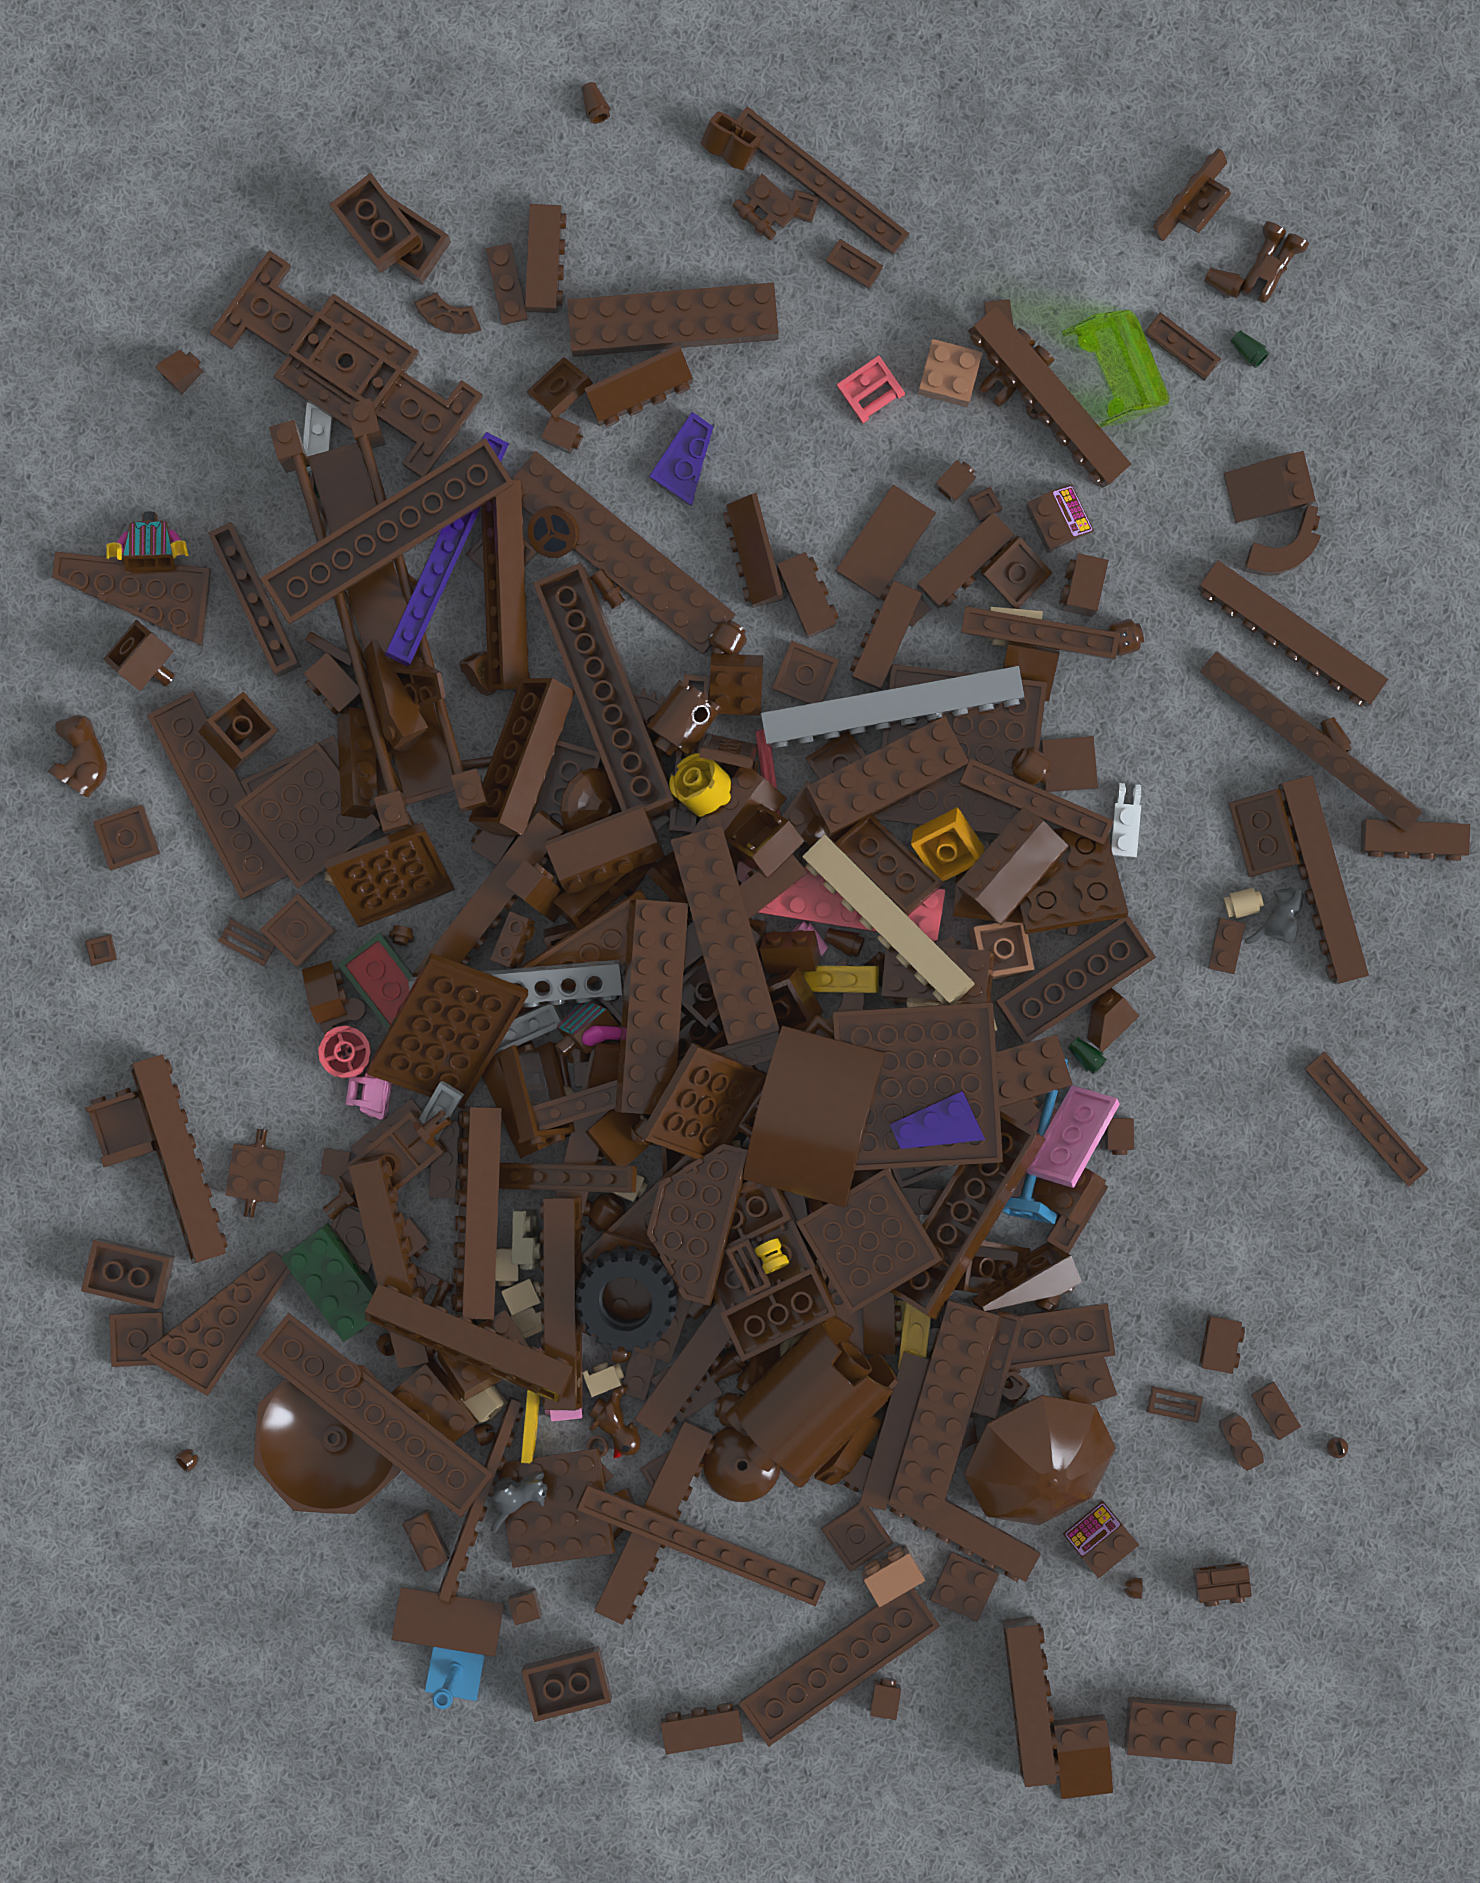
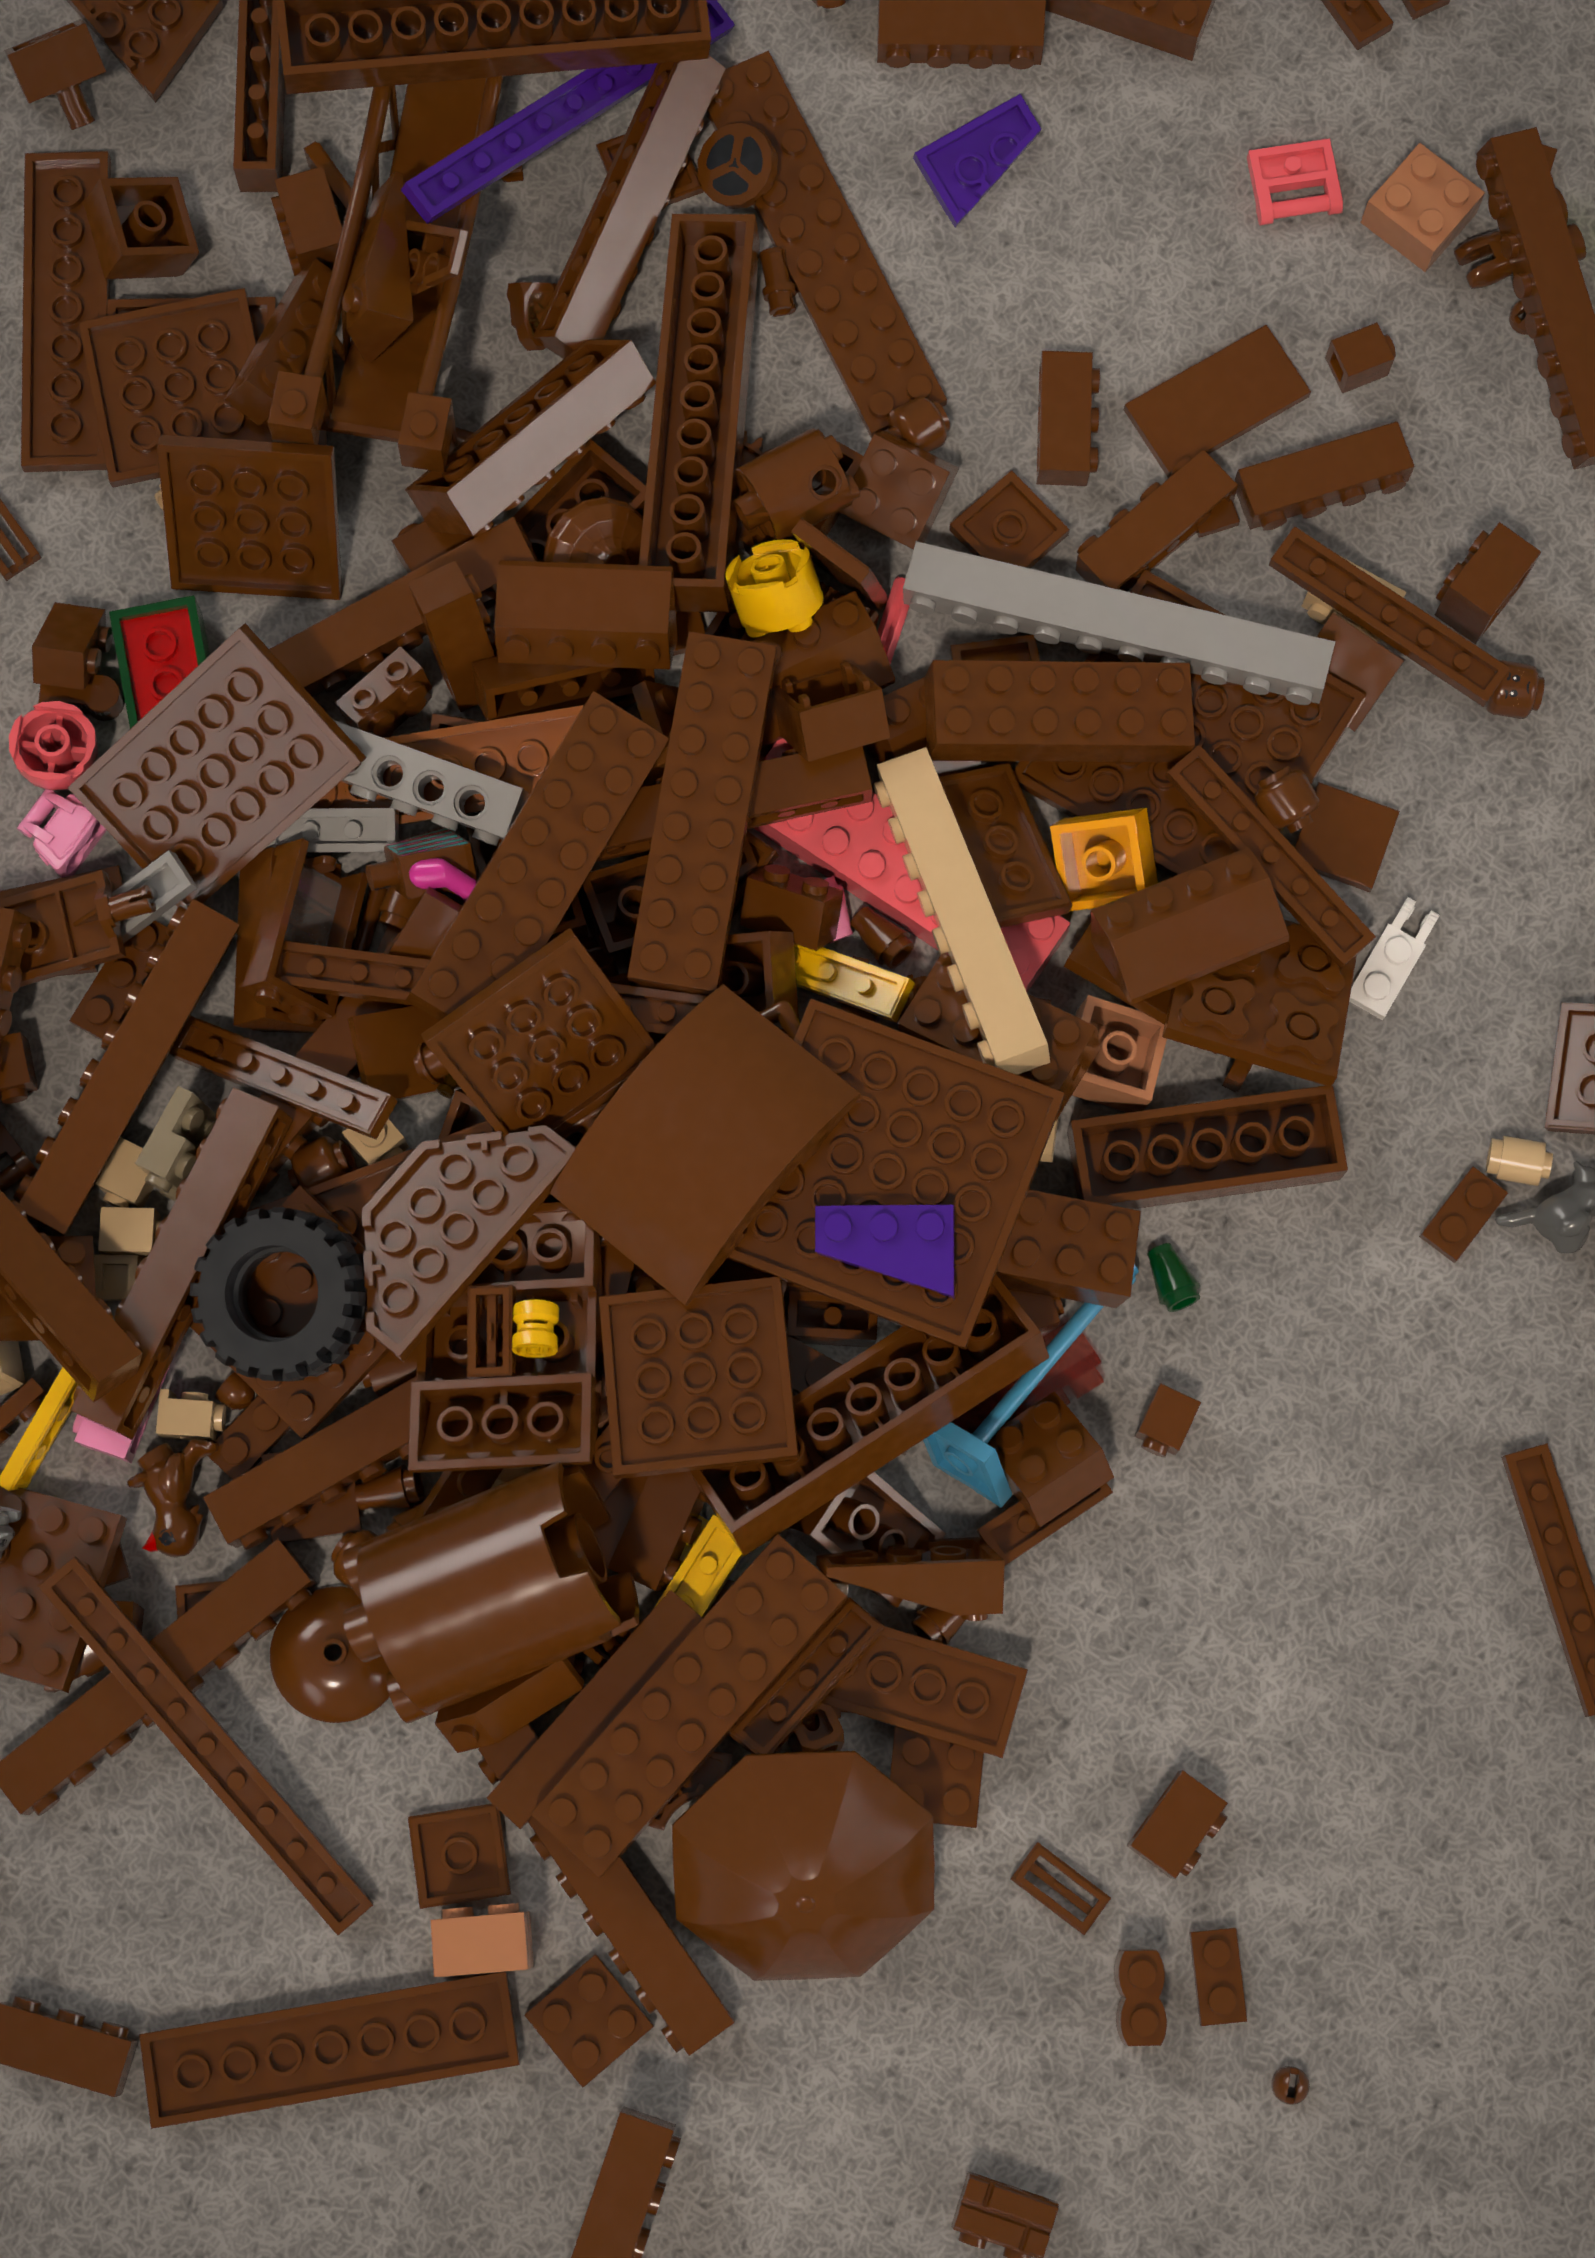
camera: 25 degrees right, 10 degrees down
(298, 930) = (79, 545): reddish brown container -> none
(401, 935) = (225, 622): reddish brown plate -> none
(562, 434) = (817, 43): reddish brown brick -> none
(602, 1441) = (139, 1517): reddish brown hinge -> none
(754, 551) = (1016, 320): reddish brown slope -> none
(885, 1698) = (375, 2141): reddish brown brick -> none
(984, 504) = (1388, 408): reddish brown tile -> none
(1016, 572) = (1392, 523): reddish brown plate -> none
(1059, 517) = (1489, 478): reddish brown slope -> none
(1073, 1136) = (1092, 1381): bright pink plate -> none
(1100, 1539) = (842, 2047): reddish brown slope -> none
(1109, 1019) = (1233, 1235): reddish brown slope -> none
(1134, 1588) = (859, 2156): reddish brown hinge -> none

